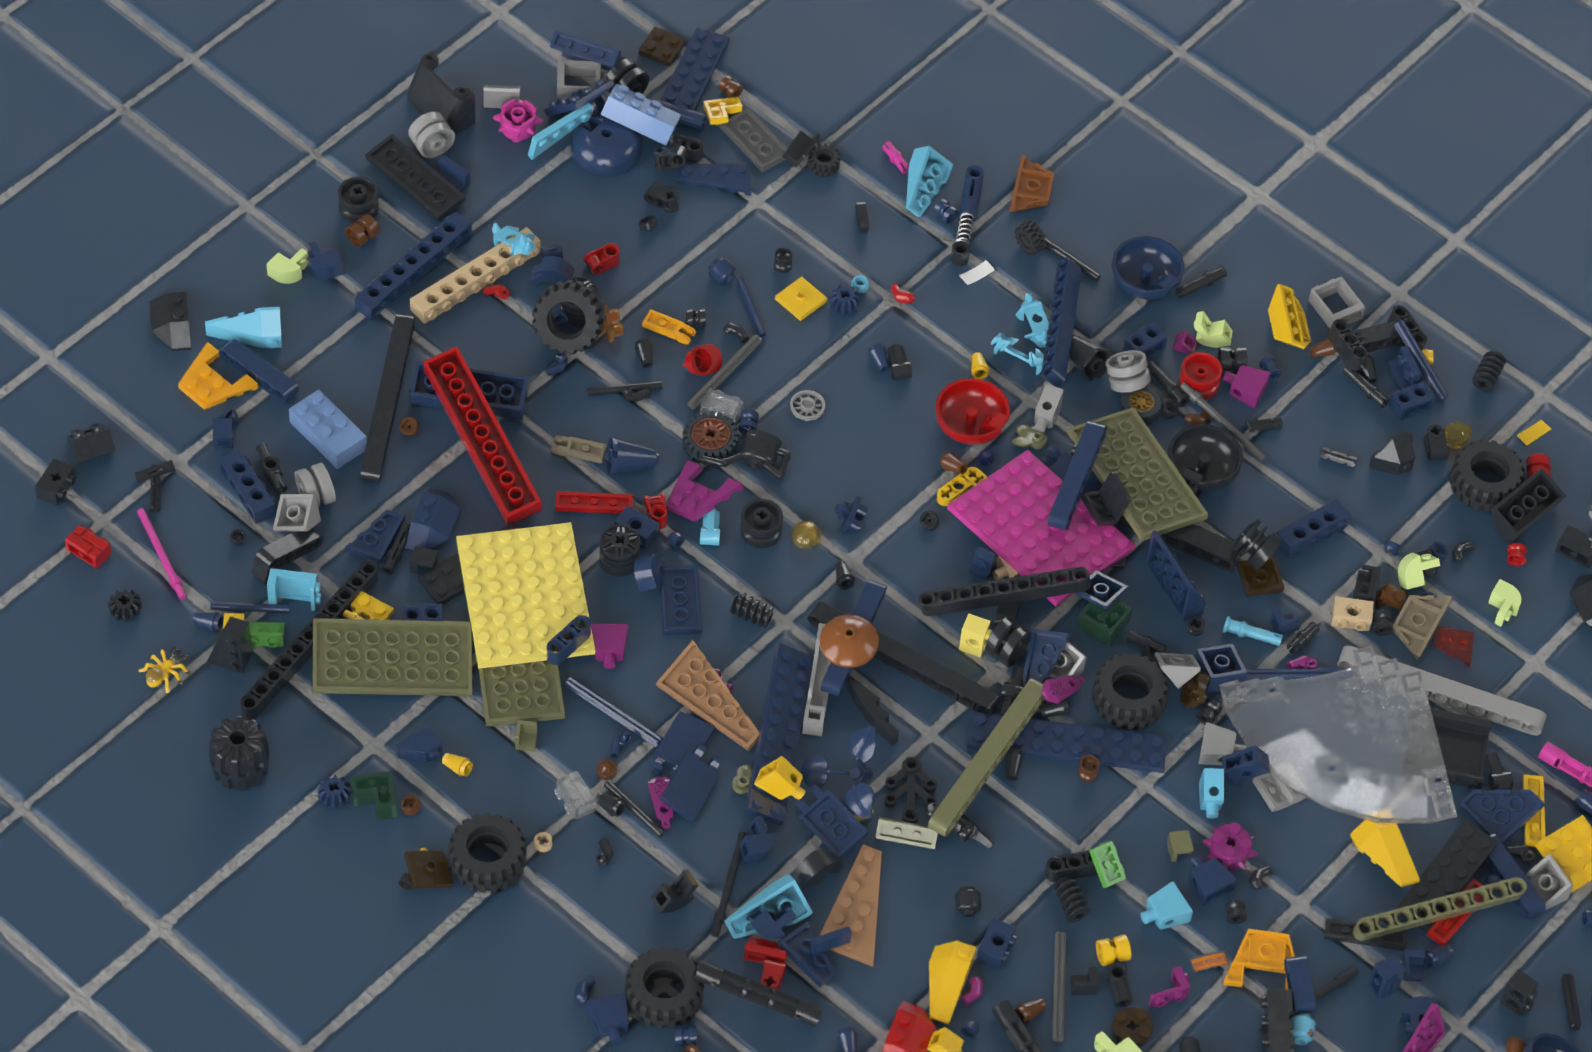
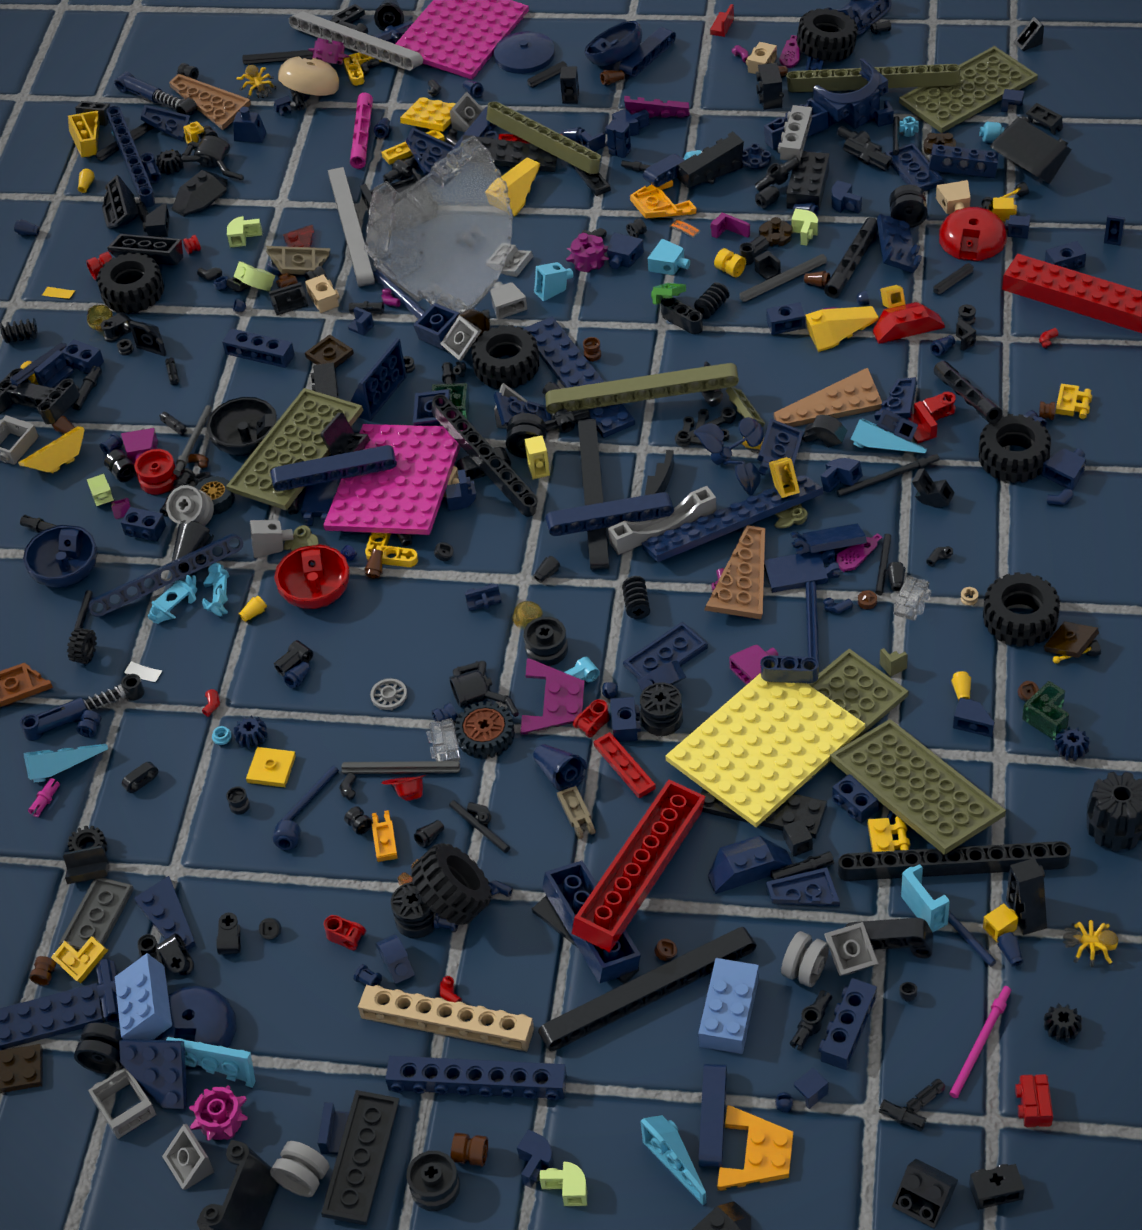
camera: 115 degrees left, 5 degrees down
(267, 634) = (979, 898): bright green bracket -> none
(519, 245) = (381, 1023): medium azure piece -> none
(585, 50) = (87, 1096): dark blue fence -> none
(830, 940) = (881, 384): dark blue tile -> none
(849, 650) = (620, 506): dark orange dish -> none
(968, 901) = (767, 347): black head -> none
(1058, 688) = (542, 387): magenta piece -> none
(1179, 843) = (611, 276): olive panel -> none
(1243, 629) = (387, 336): medium azure pin -> none
(1245, 764) = (514, 269): dark blue brick -> none
(1257, 544) = (313, 337): black wheel -> none

